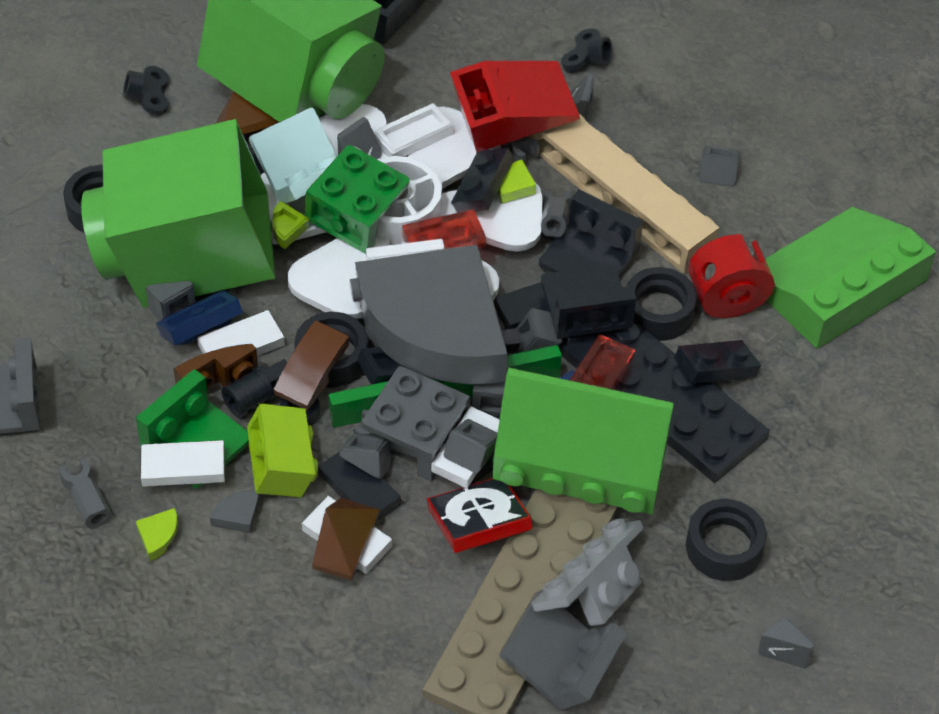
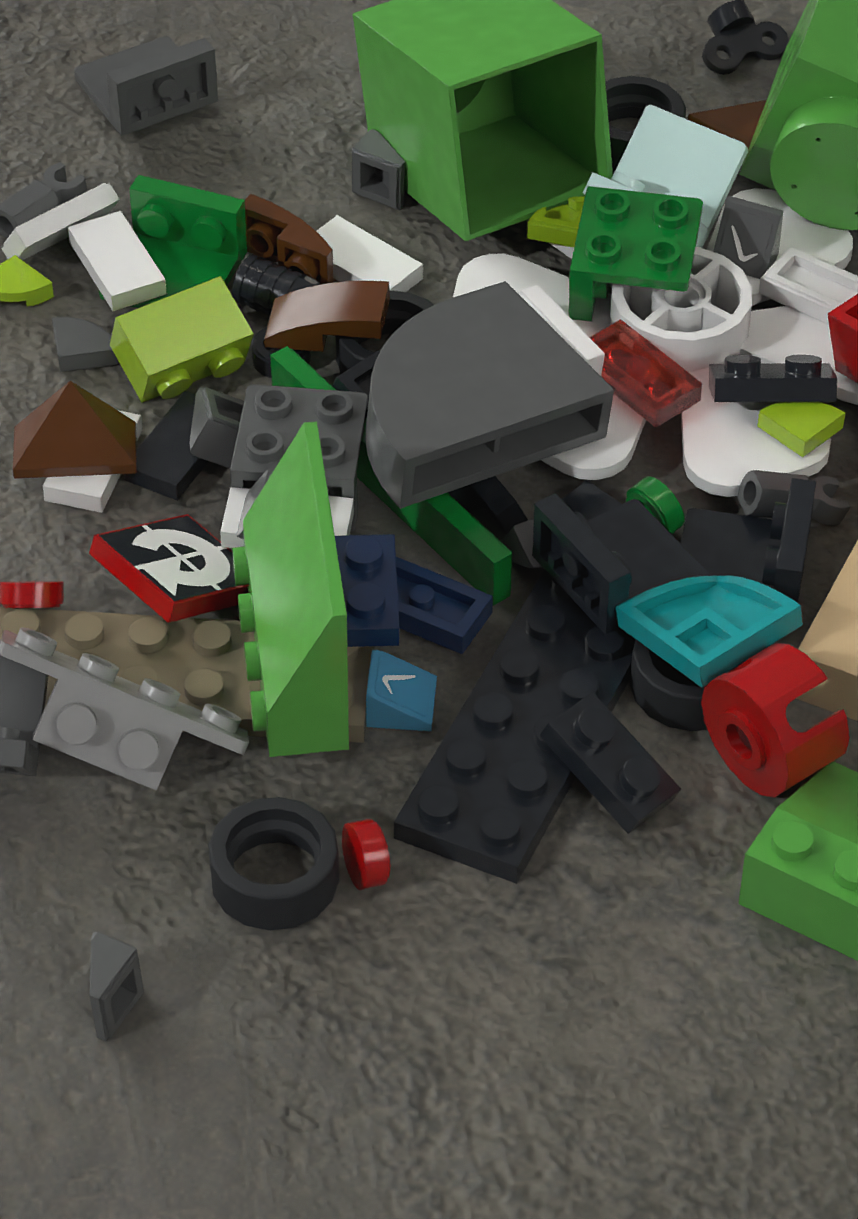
camera: 70 degrees right, 5 degrees down
(123, 485) = (53, 225): none -> white tile
(209, 313) = (352, 199): dark blue plate -> none
(461, 598) = (31, 594): none -> red tile
(488, 397) = (402, 522): dark grey plate -> none
(531, 271) = (659, 502): none -> green tile
(604, 363) = (483, 613): clear red plate -> none
(662, 272) = (708, 622): none -> teal plate
(739, 489) = (365, 854): none -> red tile

